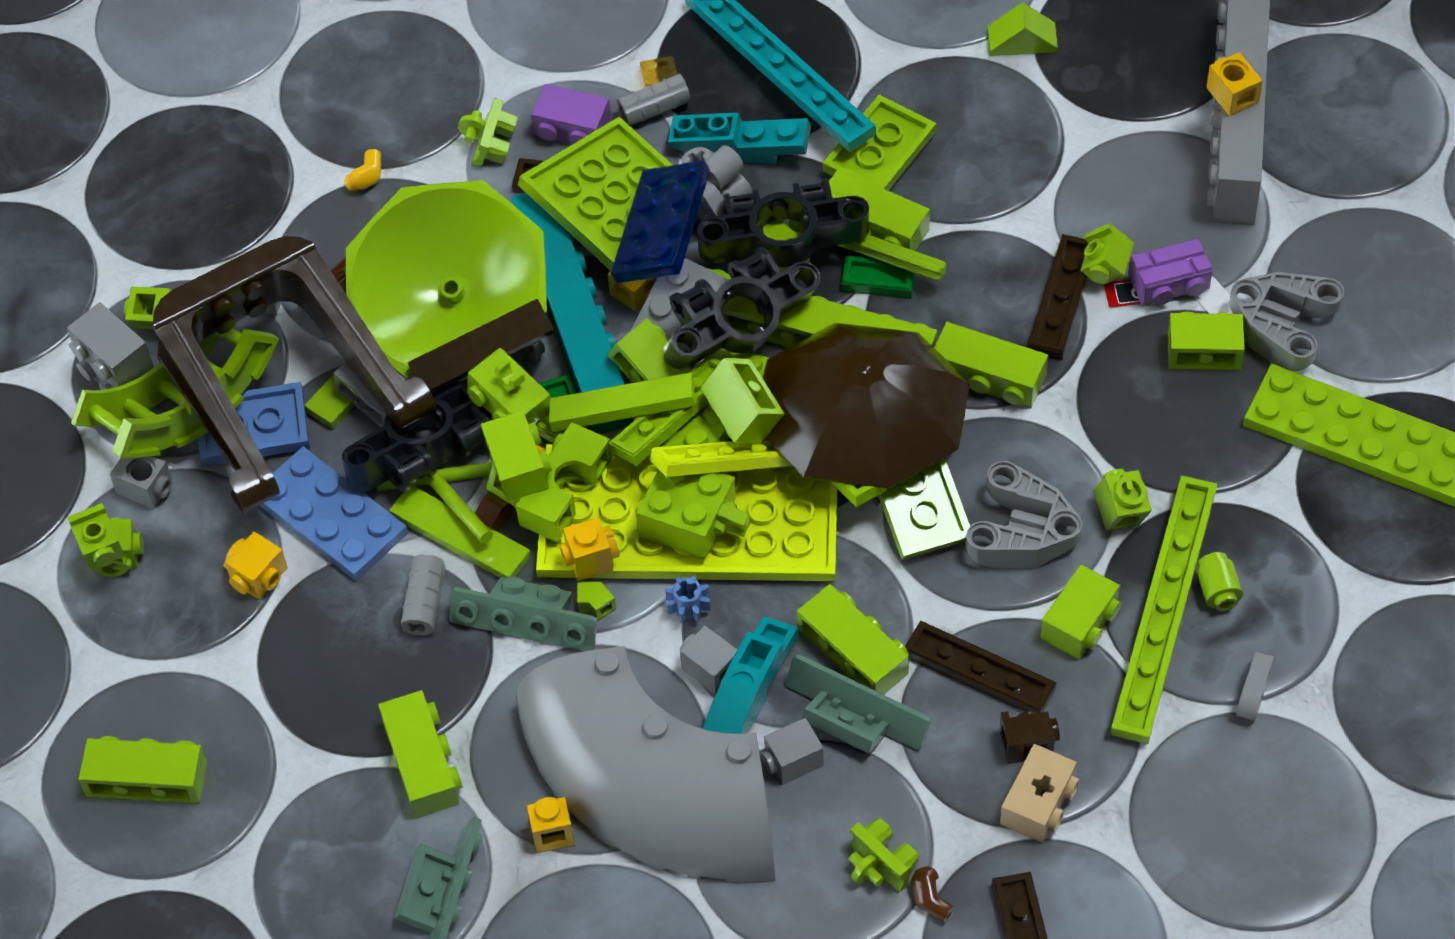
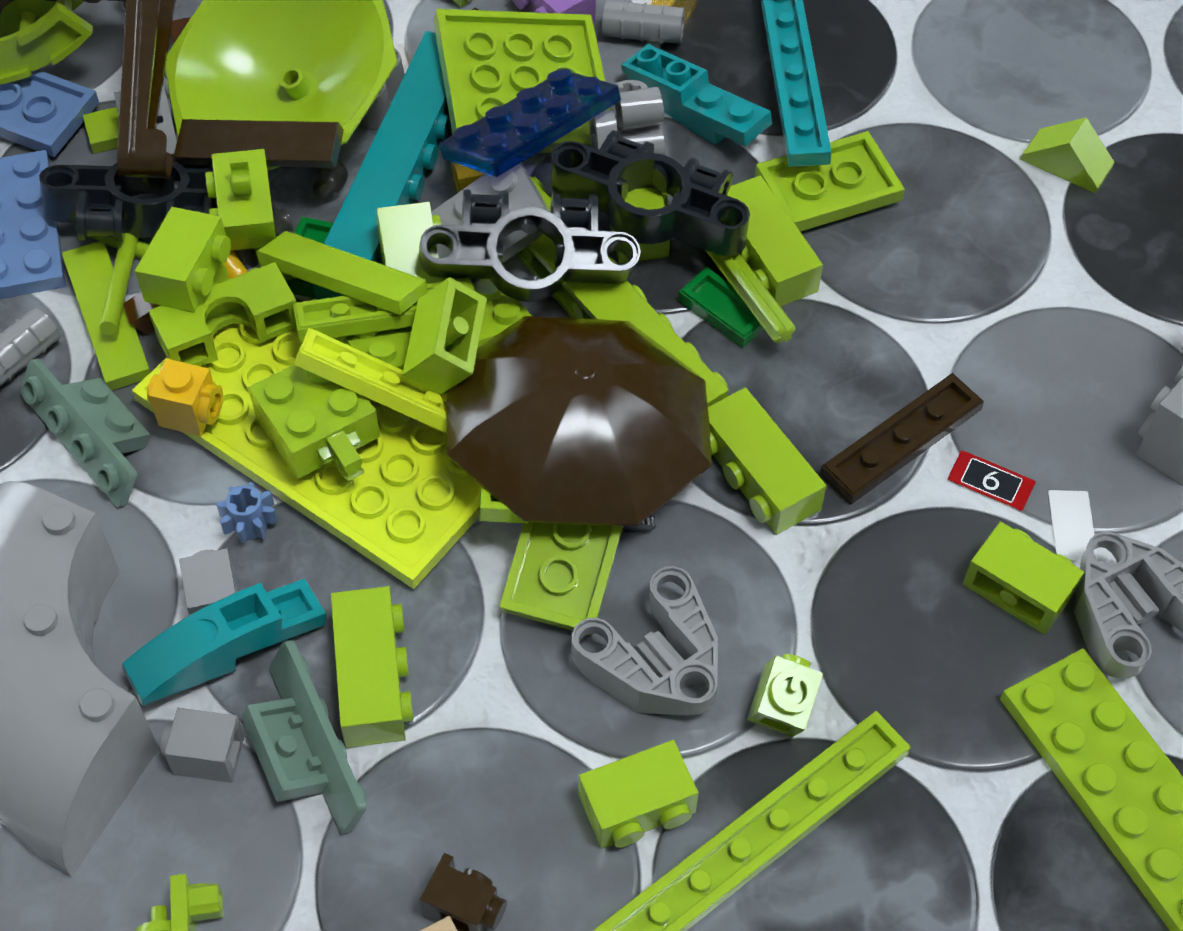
camera: 30 degrees right, 0 degrees up
(595, 599) = (163, 456): lime piece -> none
(979, 669) = (482, 788): dark brown tile -> none
(1106, 254) = (980, 419): lime brick -> none
(1170, 272) = (1040, 480): medium lavender brick -> none
(1219, 581) = (825, 864): lime brick -> none

